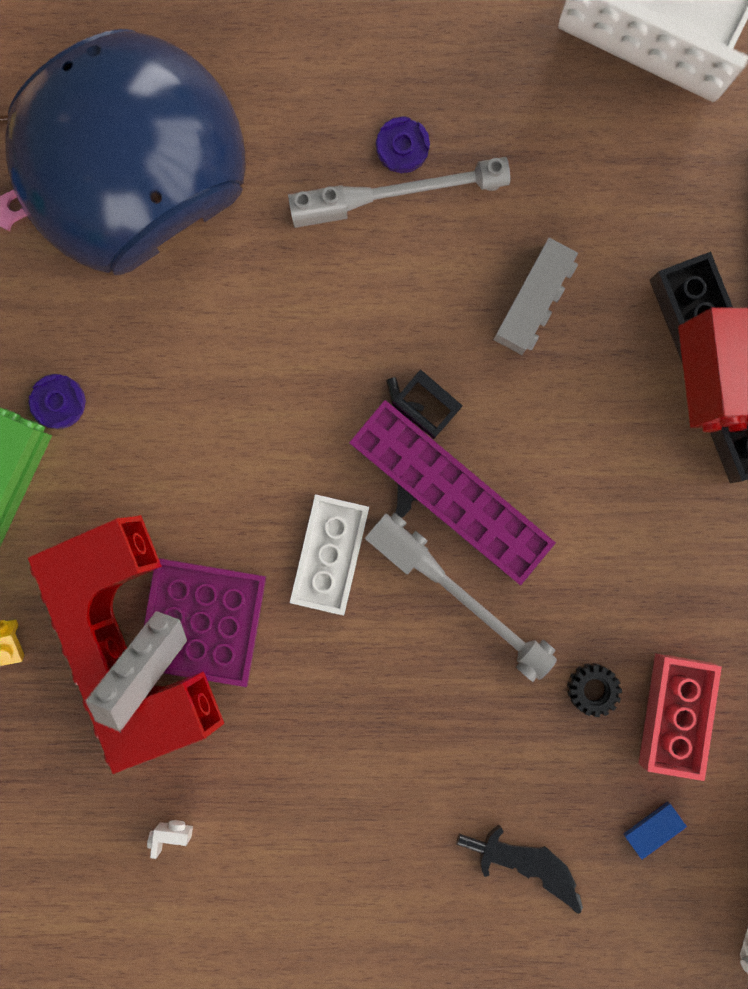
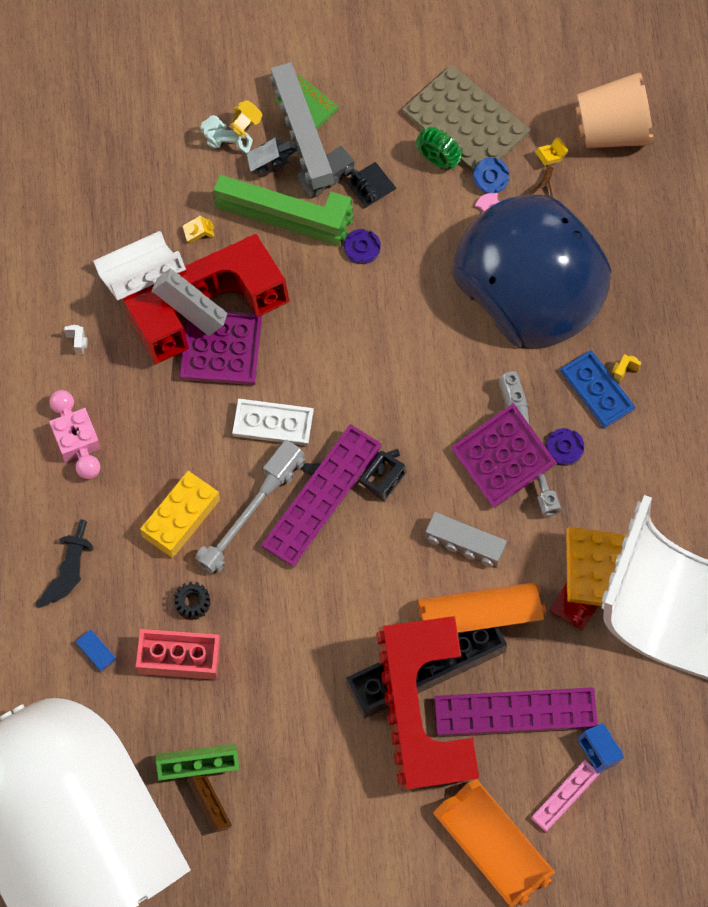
camera: 80 degrees right, 20 degrees down
(62, 741) = (137, 265): none -> white panel
(292, 48) = (627, 362): none -> yellow bracket
(318, 88) = (597, 389): none -> blue tile
(322, 866) = (69, 425): none -> bright pink brick
(417, 226) = (504, 455): none -> magenta plate
(464, 700) = (180, 514): none -> yellow brick
(600, 108) = (590, 563): none -> light orange plate
(639, 158) = (574, 613): none -> red hinge
(646, 281) = (487, 607): none -> orange cylinder

